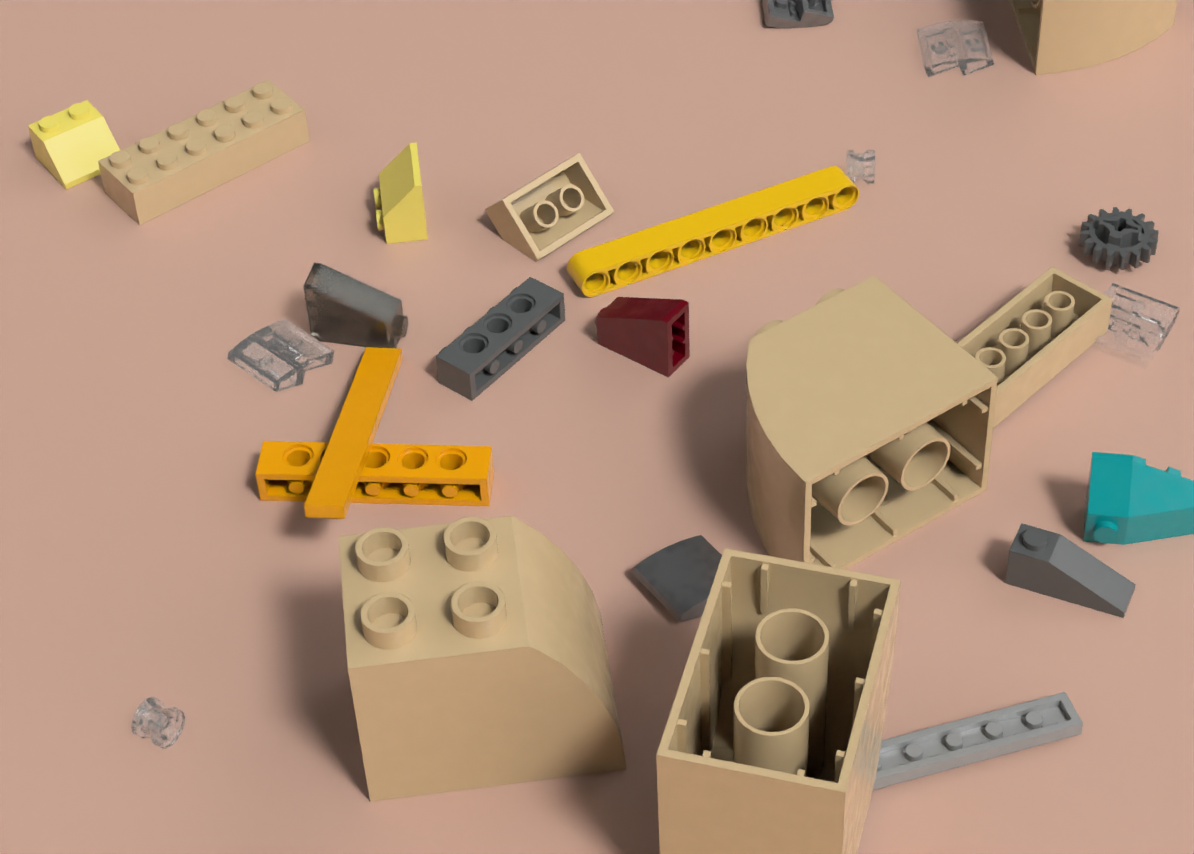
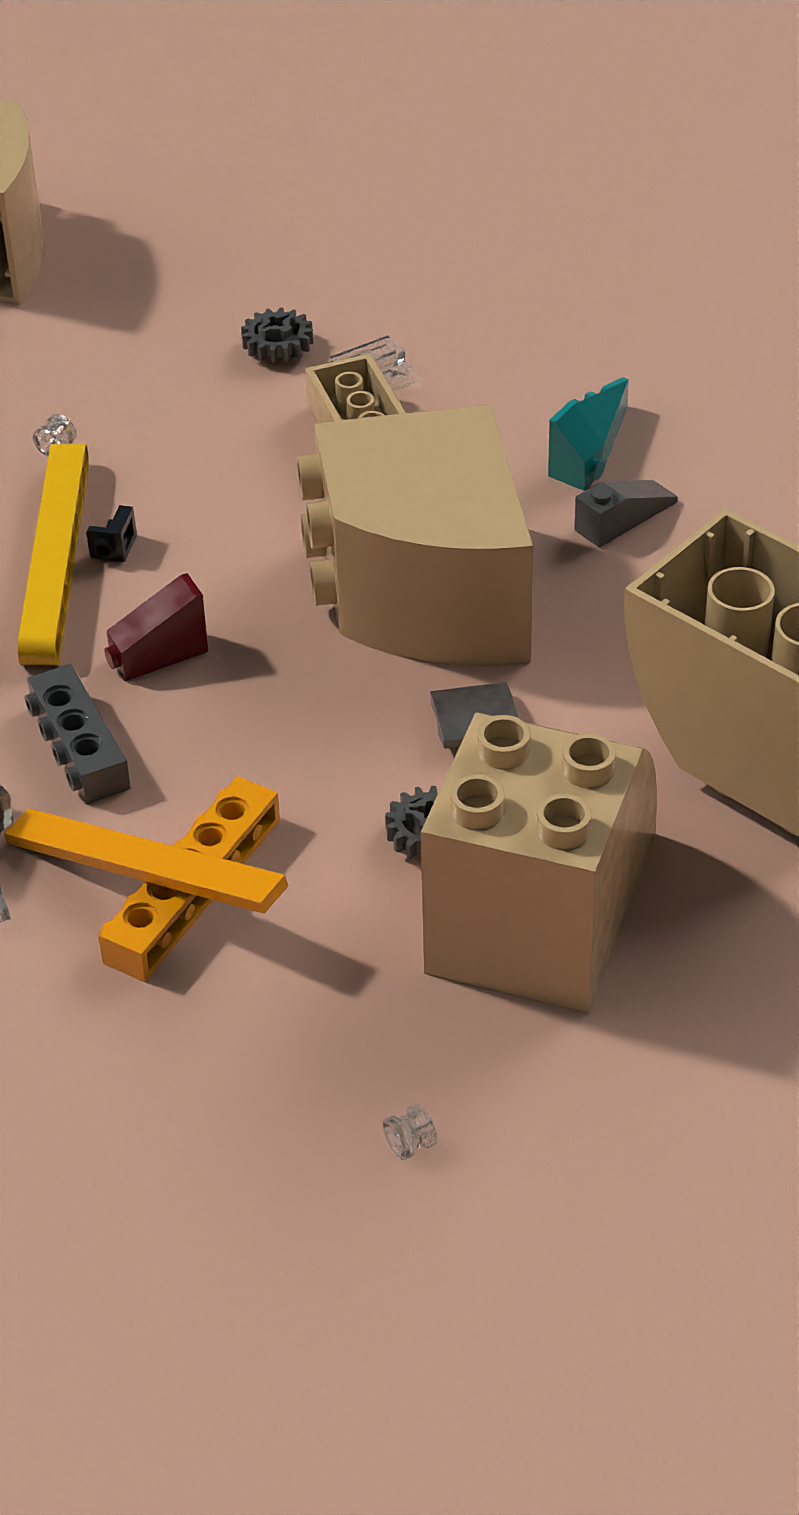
camera: 65 degrees left, 0 degrees up
(759, 258) = (116, 539): none -> black bracket

